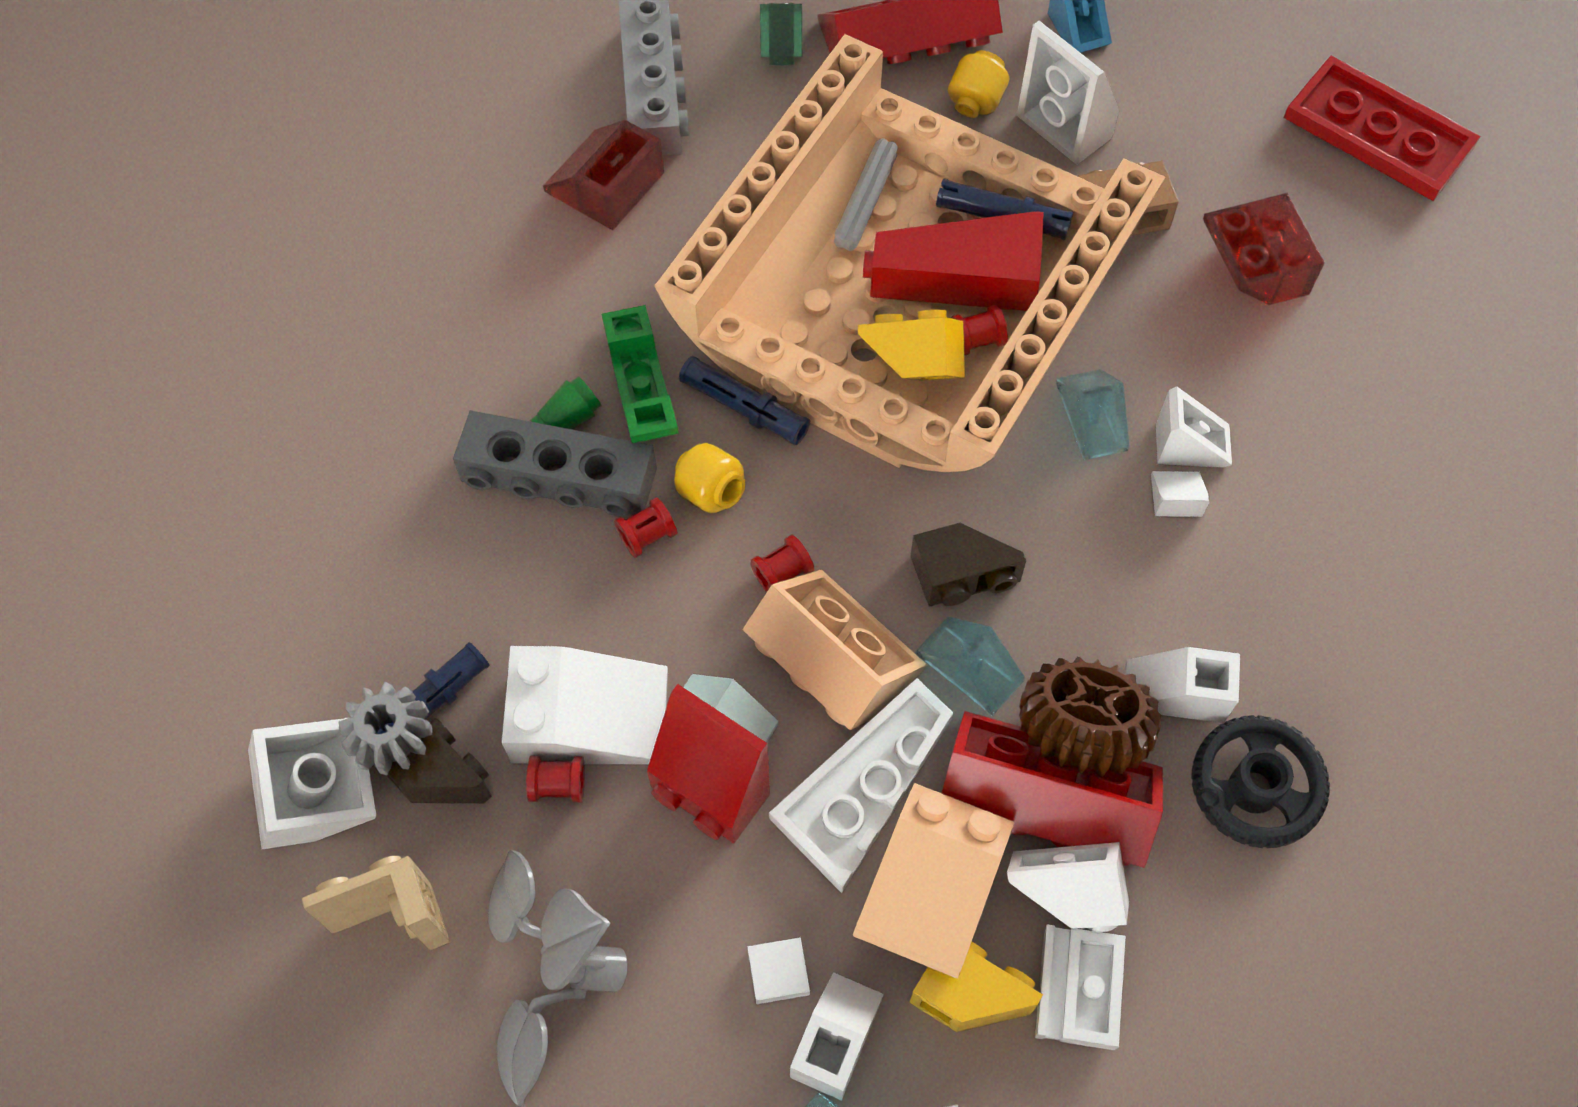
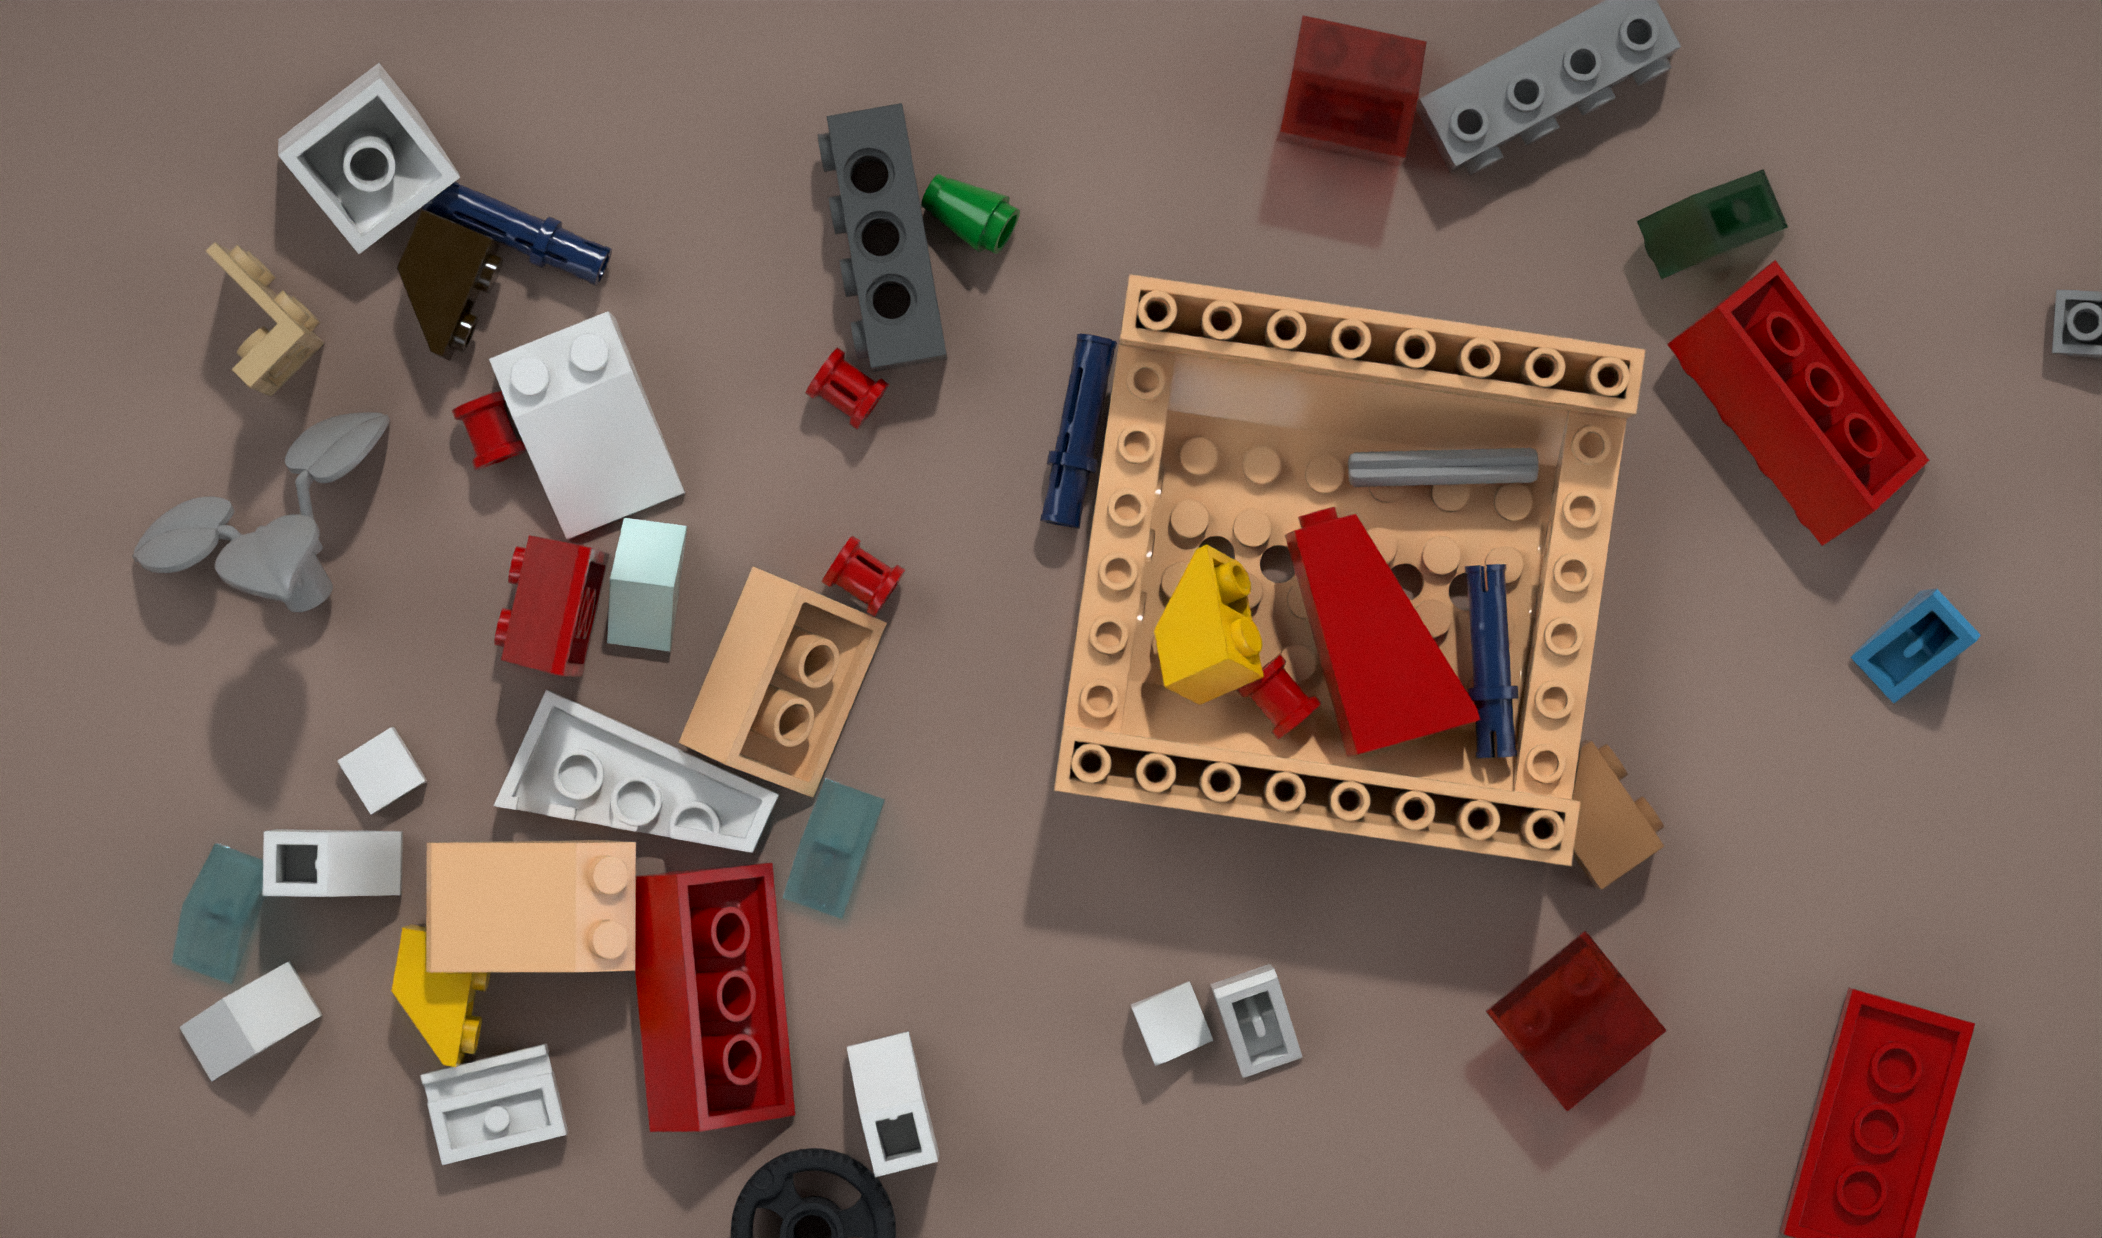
camera: 60 degrees right, 25 degrees up
(376, 712) = (424, 217): light grey gear -> none
(639, 374) = (1050, 287): green slope -> none
(709, 478) = (943, 437): yellow head -> none
(963, 562) = (953, 790): dark brown slope -> none
(978, 83) = (1719, 543): yellow head -> none
(1066, 96) = (1723, 683): white slope -> none
(1075, 883) = (598, 1058): white slope -> none
(1089, 716) = (836, 987): reddish brown gear -> none
(1096, 412) = (1248, 880): clear light blue slope -> none

